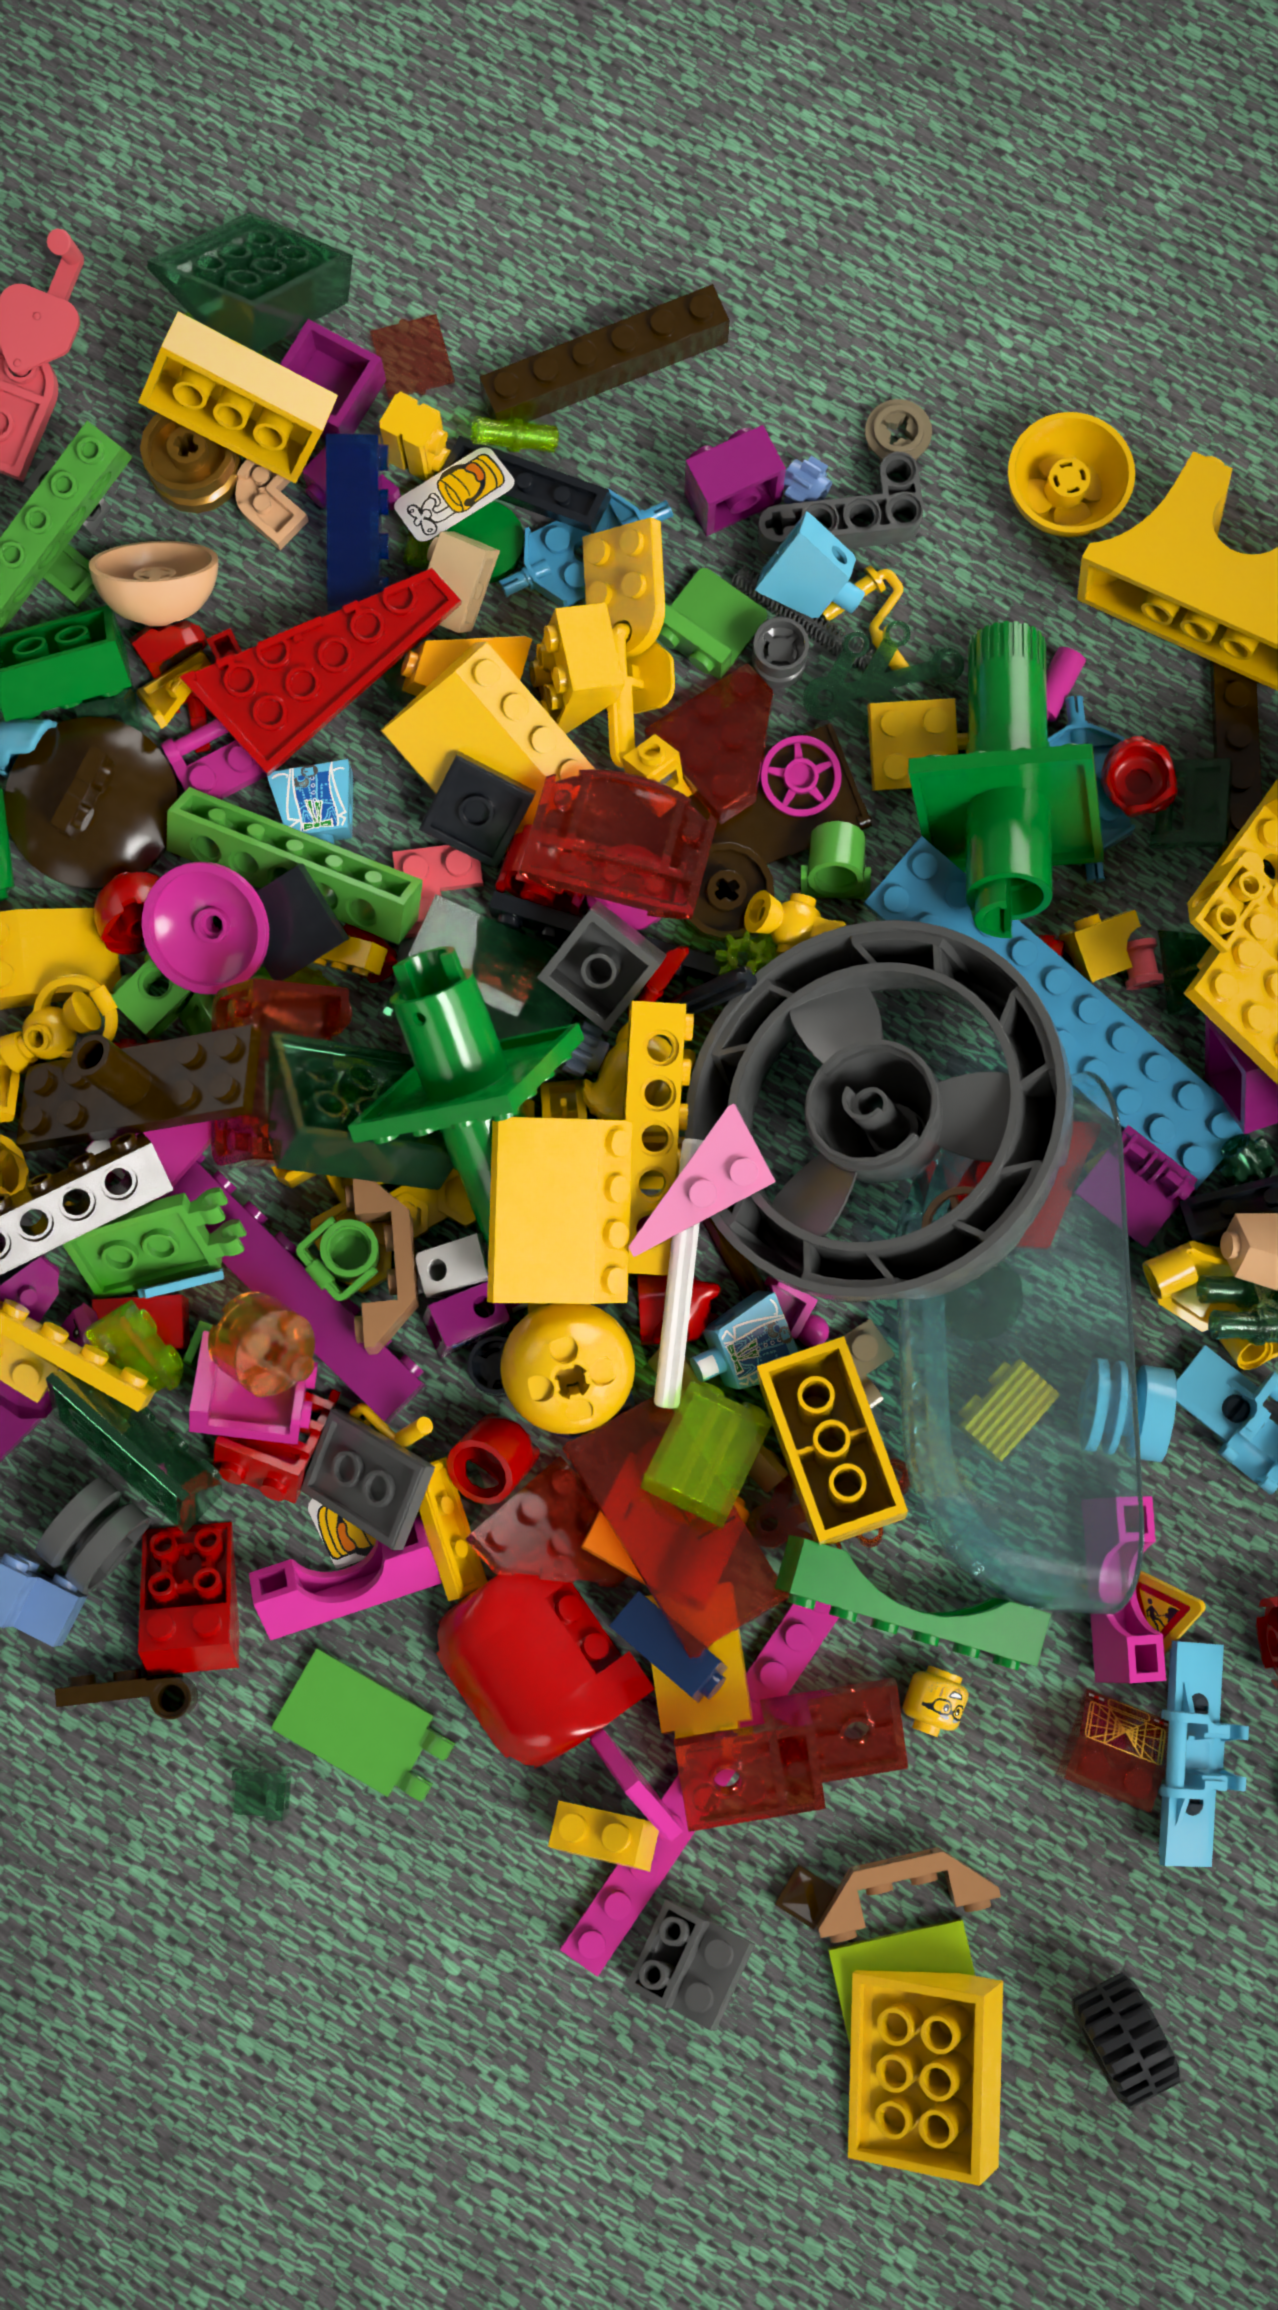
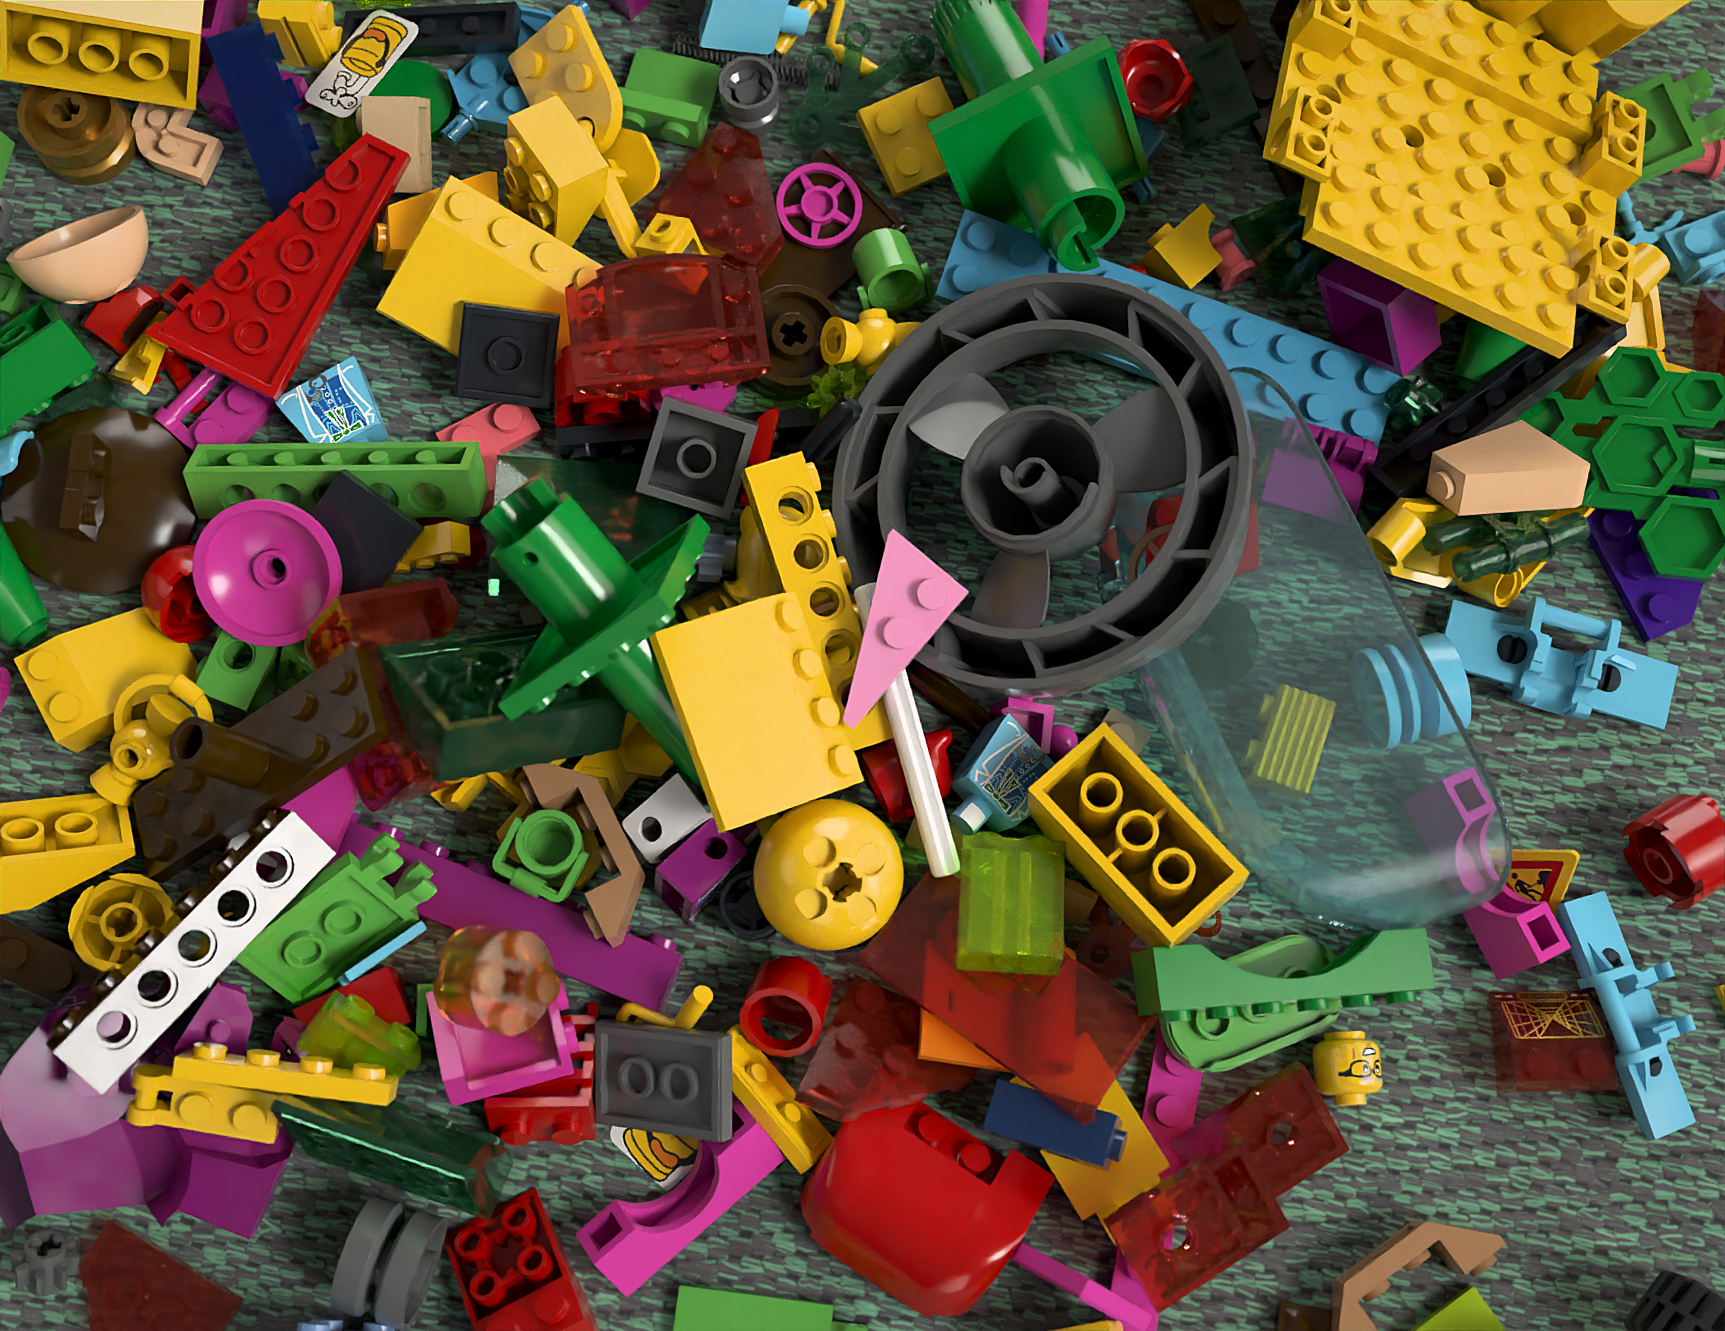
camera: 25 degrees left, 5 degrees down
(857, 1642) = (1241, 1039): none -> bright green tile

